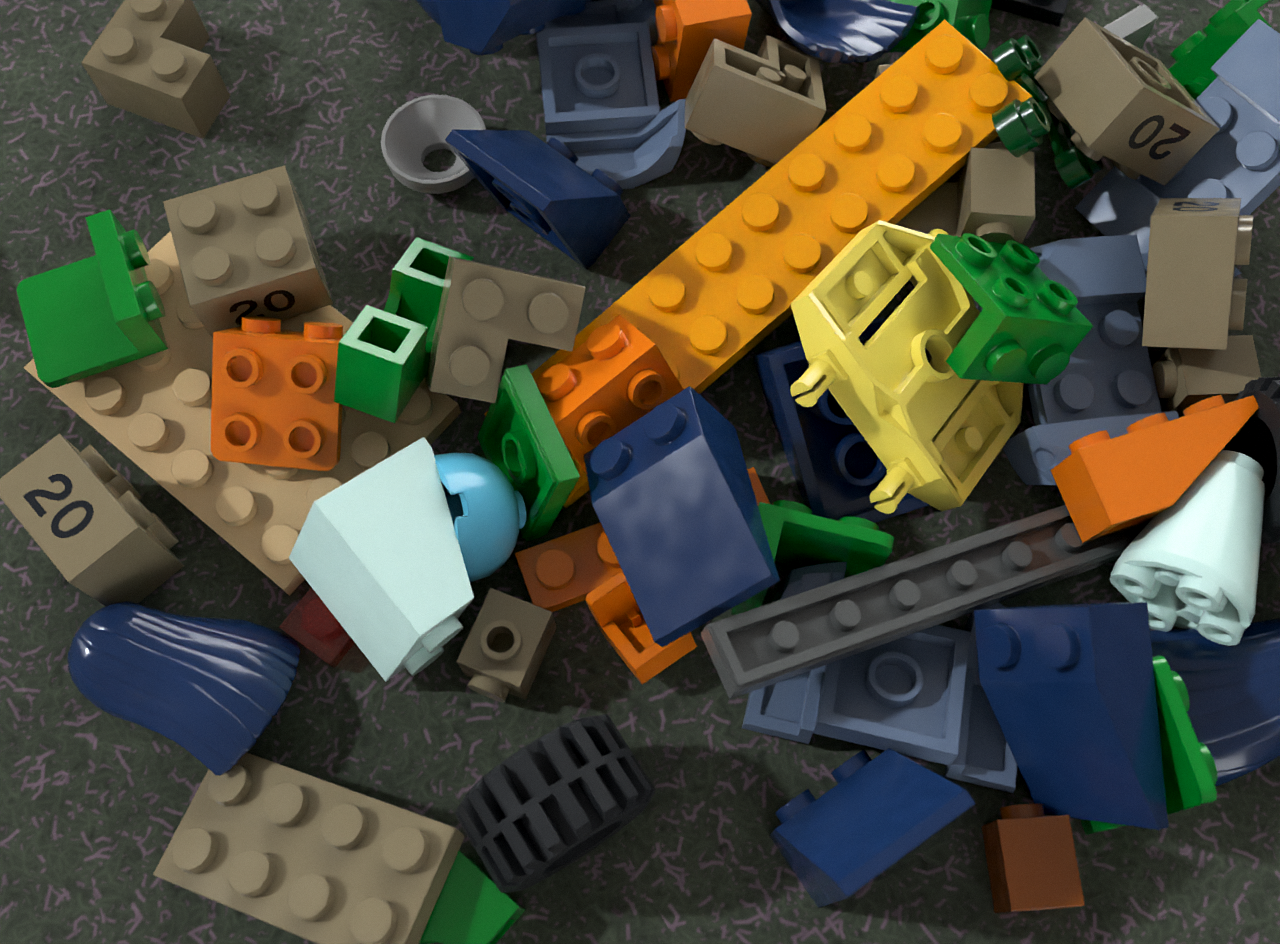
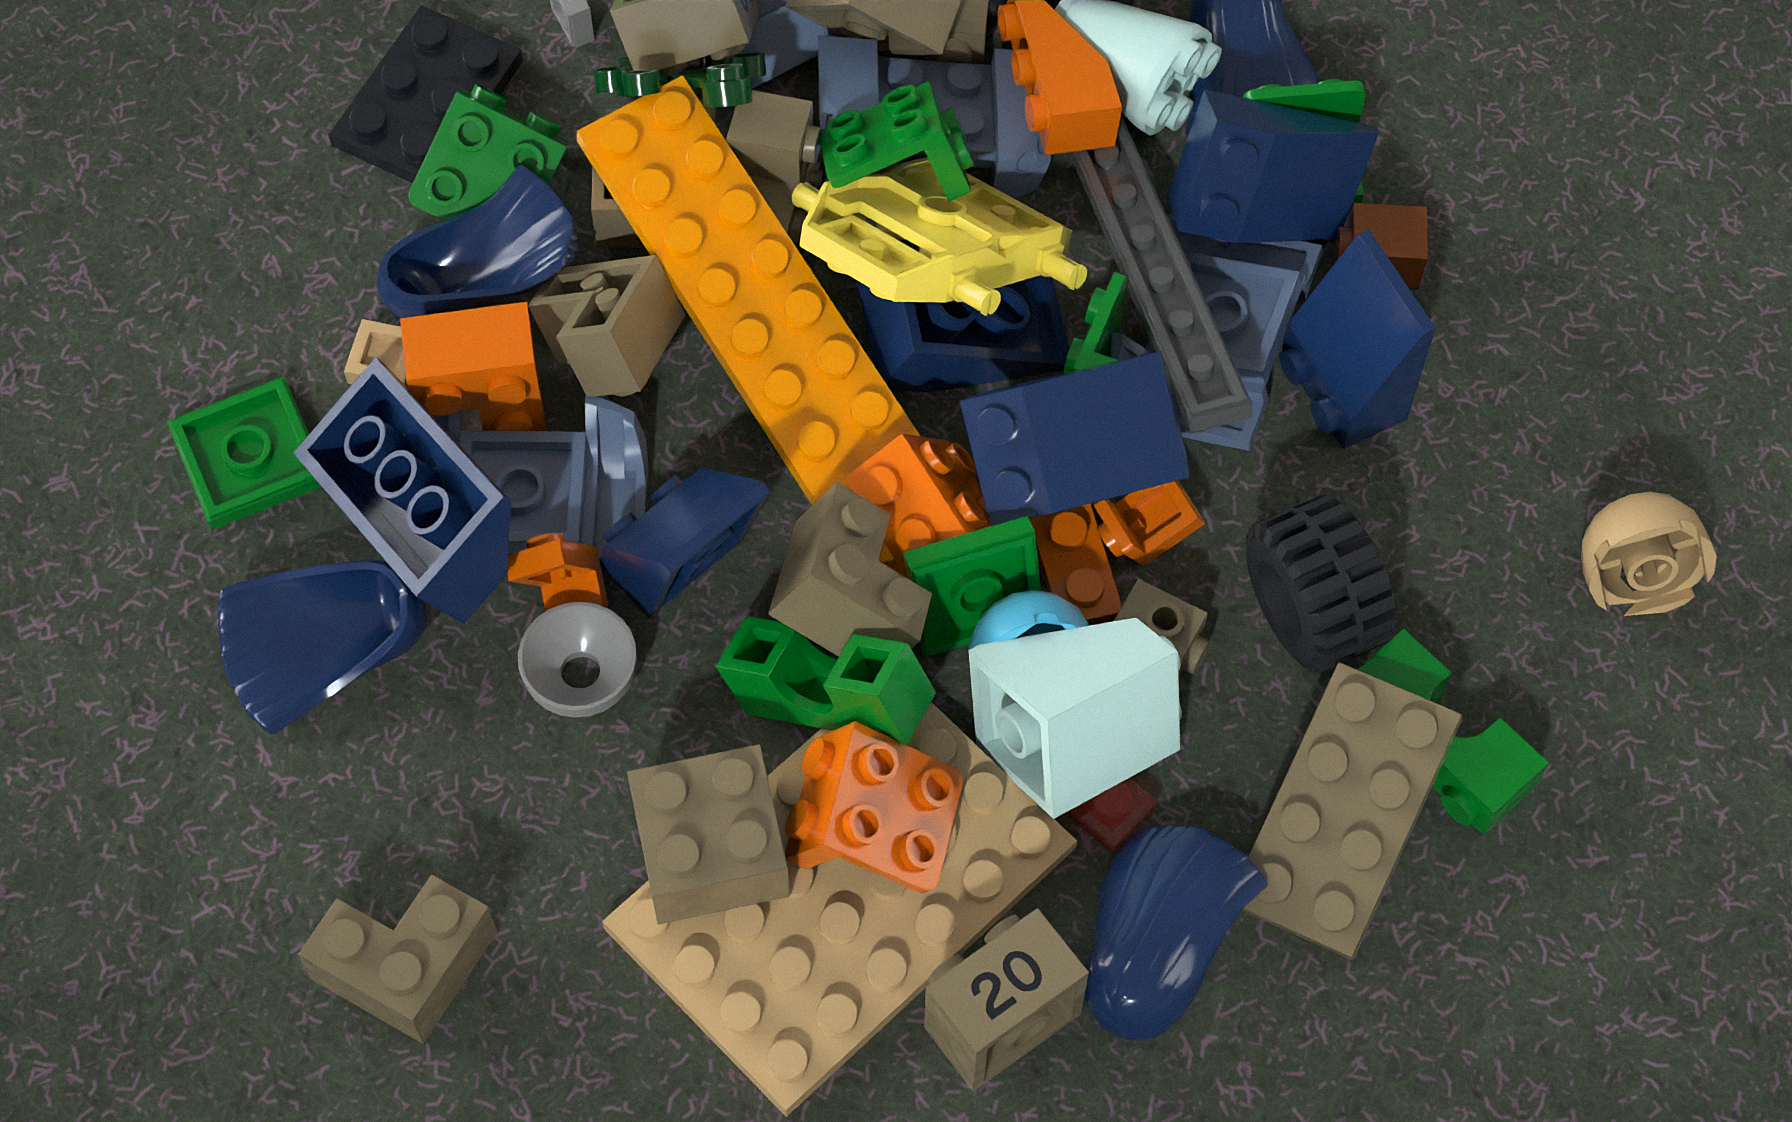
camera: 85 degrees left, 5 degrees down
(93, 309) = (746, 1001): green bracket -> none
(519, 99) = (561, 568): none -> orange bracket

